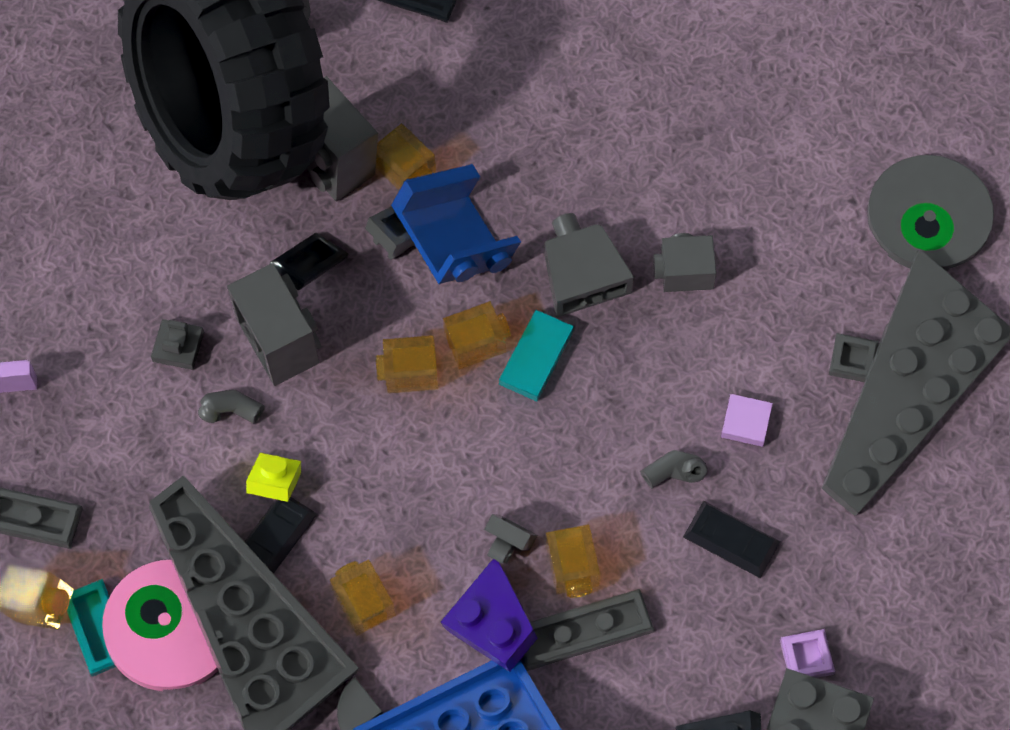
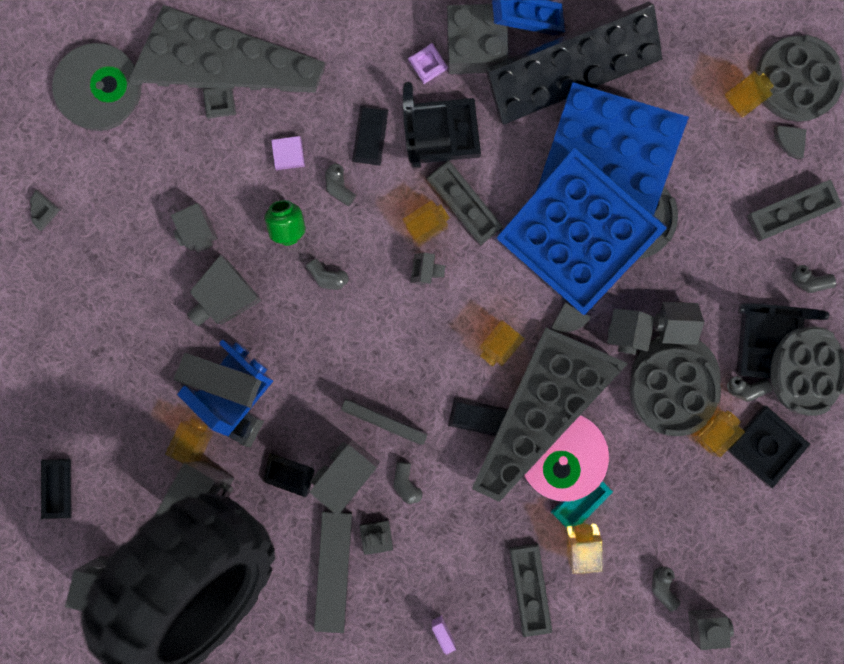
camera: 110 degrees left, 20 degrees up
(157, 275) = (333, 572): none -> dark grey tile
(273, 477) = (443, 433): neon yellow plate -> none
(324, 406) = (384, 422): none -> dark grey tile
(408, 364) = (334, 379): clear yellow brick -> none
(470, 217) = (217, 380): none -> dark grey tile
(476, 334) = (296, 344): clear yellow brick -> none
(492, 619) = (482, 258): dark purple wing -> none
(536, 355) = (294, 301): teal tile -> none
(550, 405) = (327, 279): none -> dark grey arm
(647, 375) = (284, 222): none -> green head
(699, 630) = (439, 129): none -> black piece
(786, 94) = (42, 210): none -> dark grey tile

